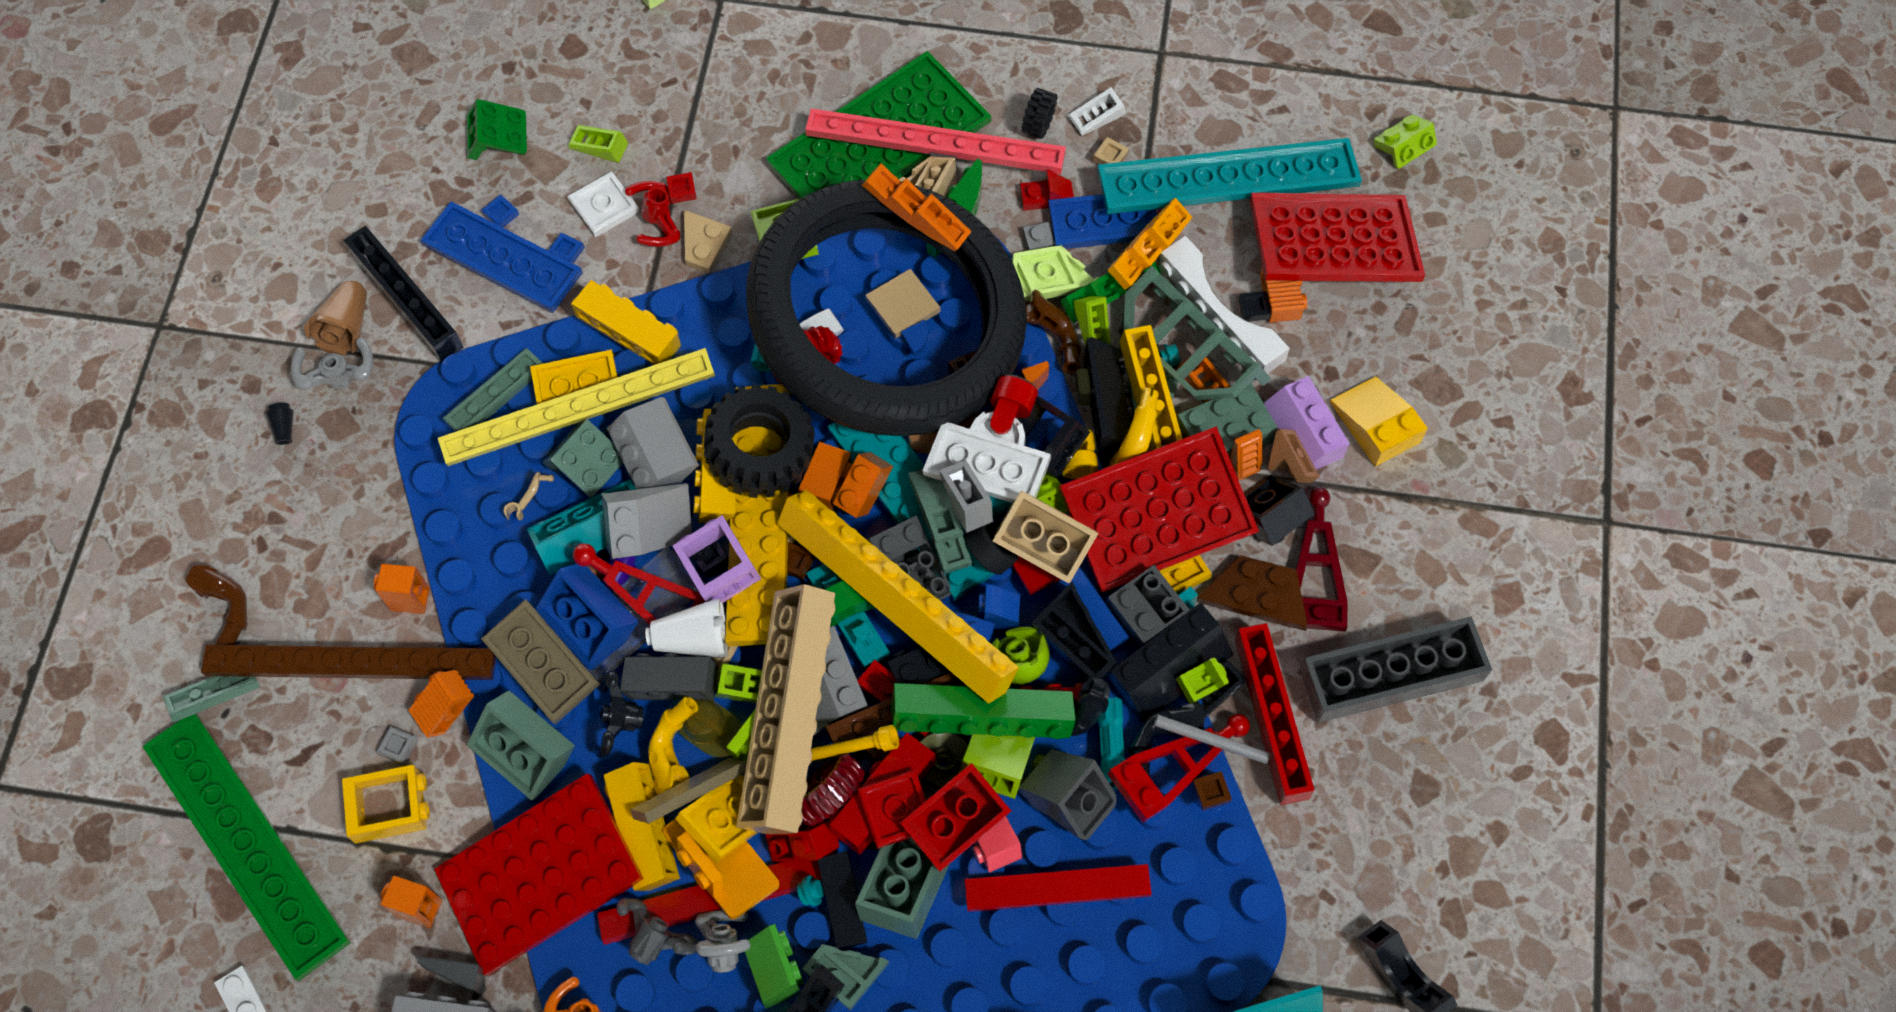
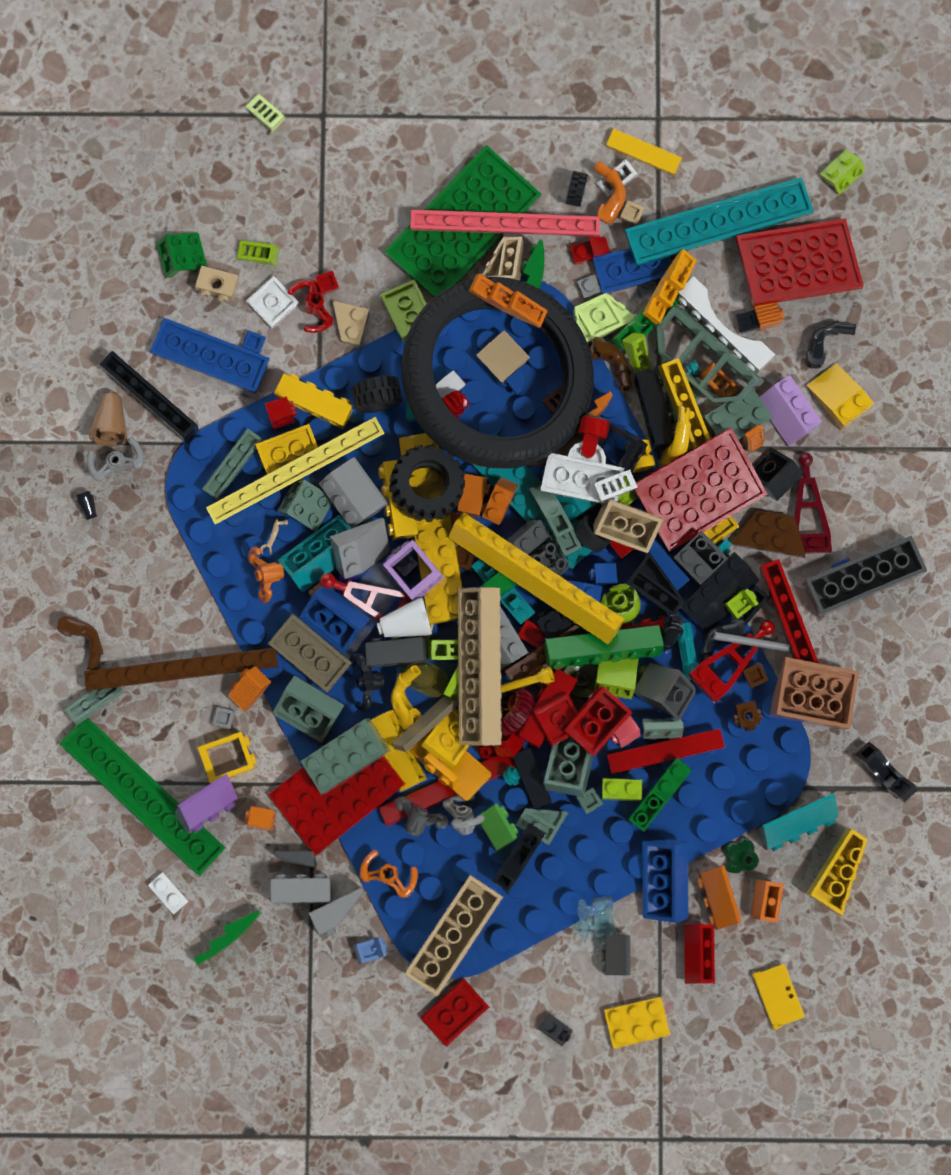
camera: 10 degrees left, 15 degrees up
(330, 865) = (206, 805): none -> medium lavender slope
(402, 588) = (203, 614): orange brick -> none
(500, 211) = (199, 319): blue tile -> none
(503, 541) = (265, 573): none -> orange piece
(523, 160) = (208, 276): none -> tan brick
(555, 818) = (345, 756): none -> sand green brick
(574, 328) = (281, 412): none -> red brick
(714, 320) = (377, 394): none -> black tyre
(926, 948) = (590, 801): none -> sand green plate
(967, 496) = (573, 506): light grey slope -> none
(978, 936) = (621, 789): none -> lime brick
(1031, 465) = (598, 486): none -> white slope
(1039, 953) = (660, 794): none -> green slope
(1057, 851) = (662, 728): none -> sand green bracket
(1080, 146) = (609, 211): none -> orange piece
(1083, 387) = (636, 401): olive tile -> none
(1137, 87) = (643, 152): none -> yellow tile
(1195, 839) = (747, 709): none -> reddish brown brick
(1290, 453) = (782, 431): medium nougat slope -> none
(1303, 832) = (815, 694): none -> nougat slope
(1348, 358) = (815, 355): none -> black piece

